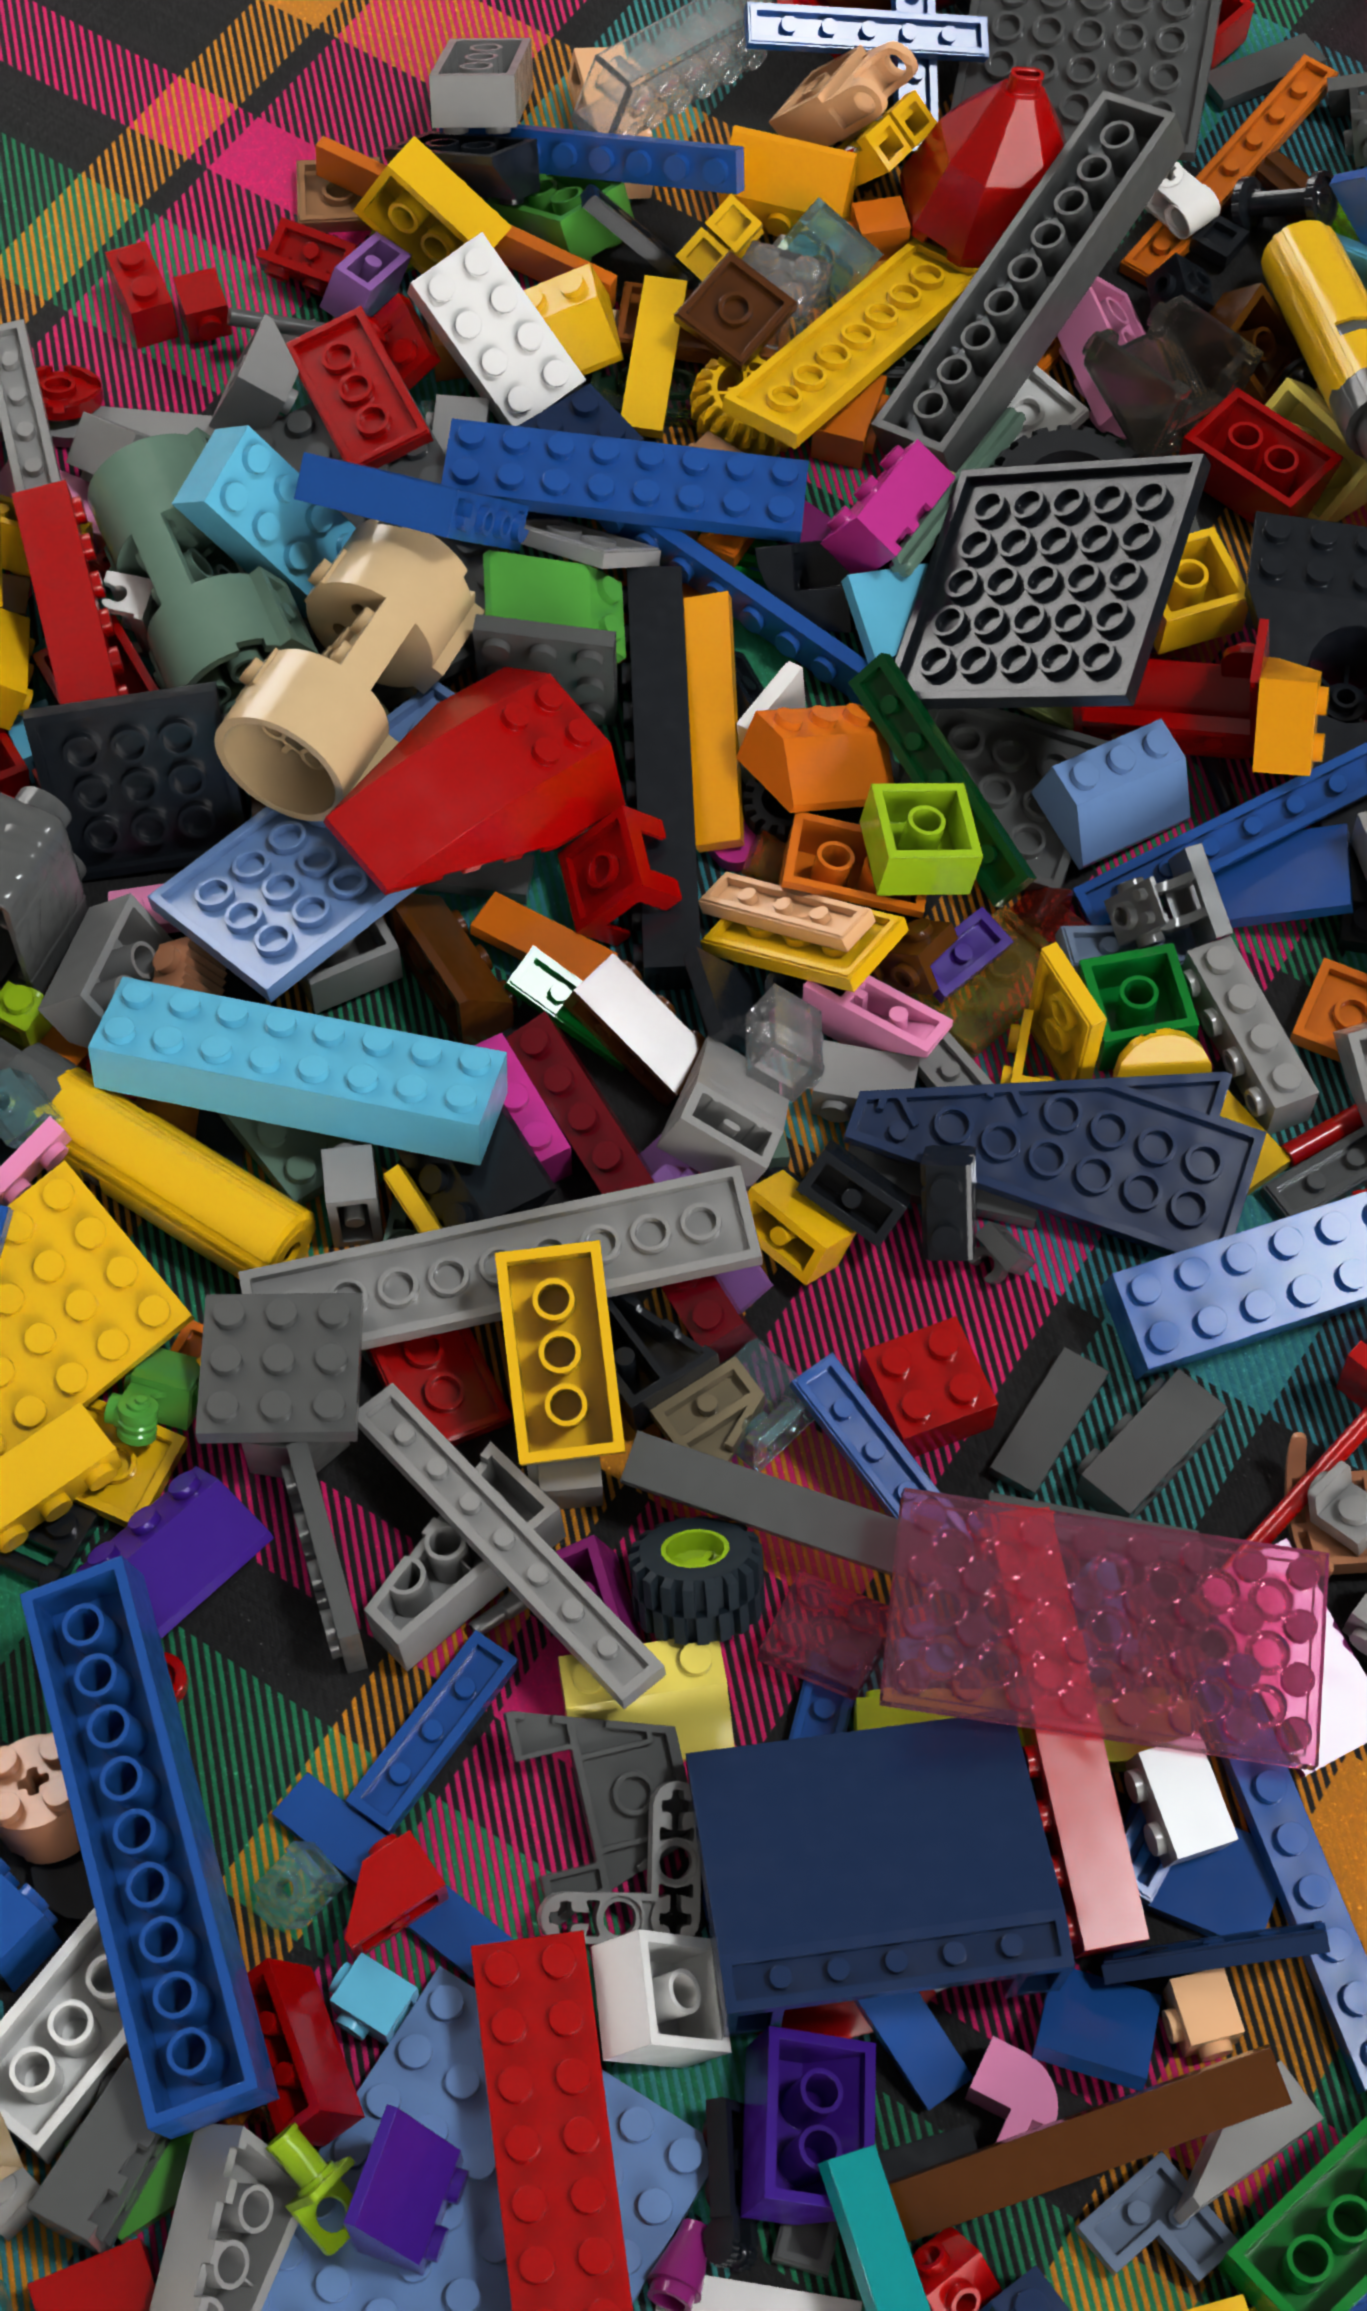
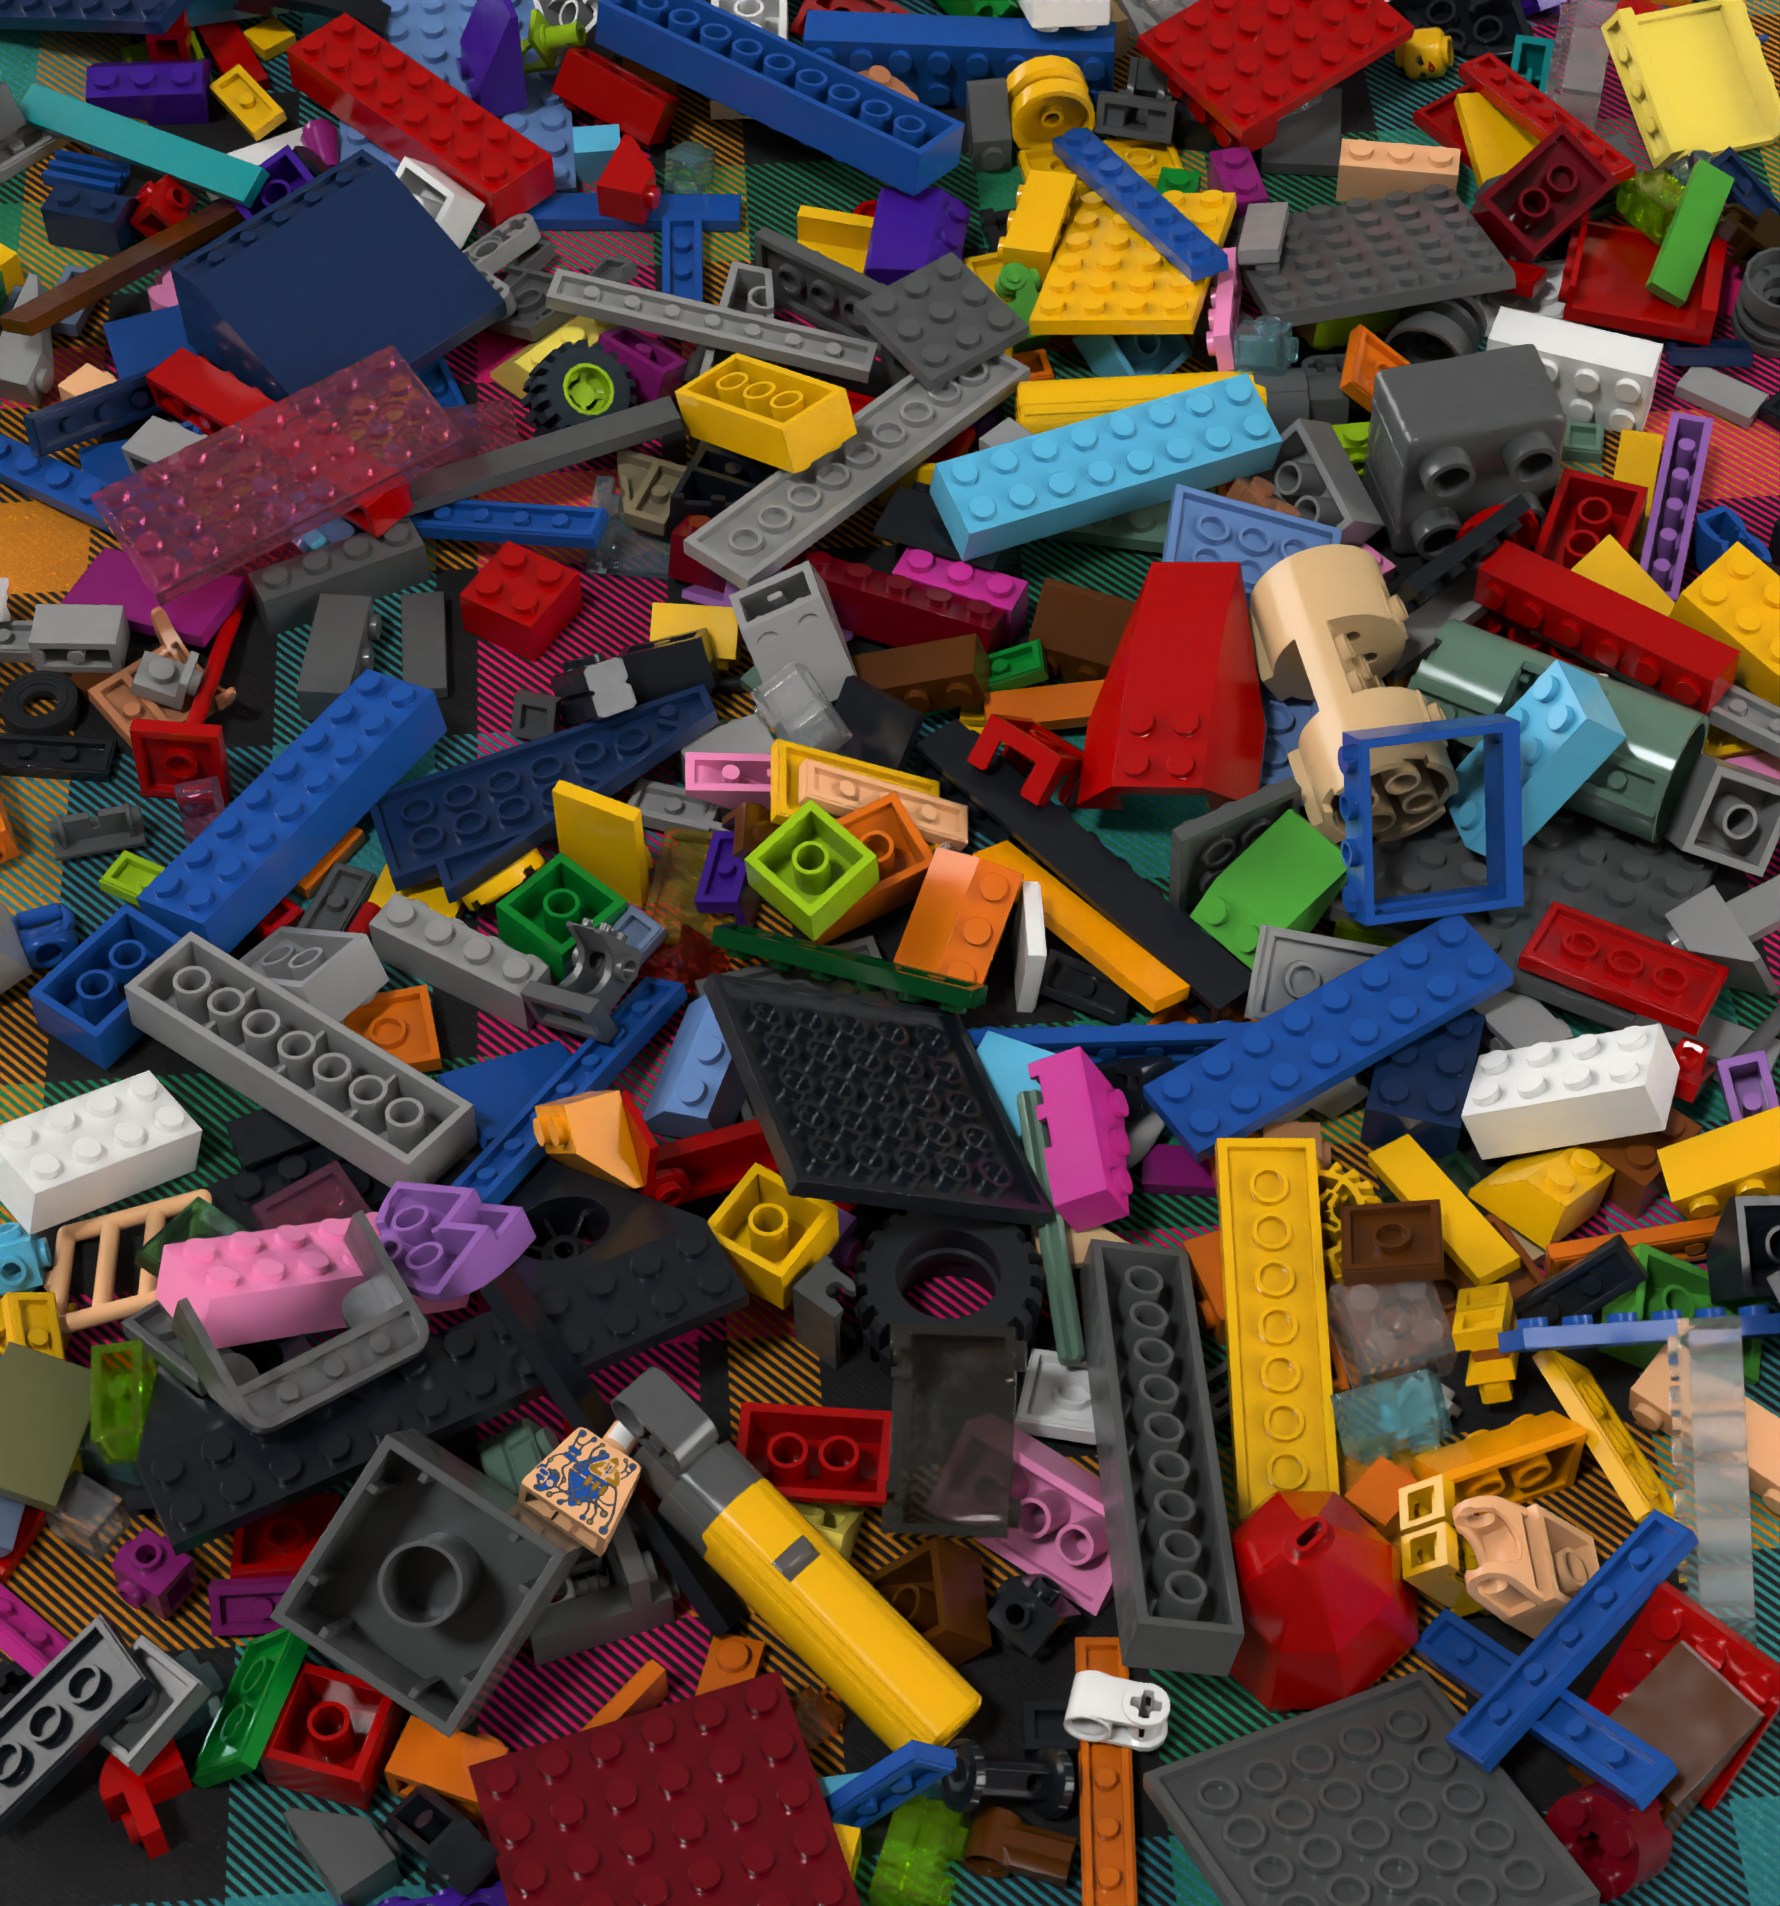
camera: 145 degrees right, 10 degrees down
(240, 1661) = (835, 235): none -> yellow panel
(707, 123) = (1606, 1435): none -> yellow tile

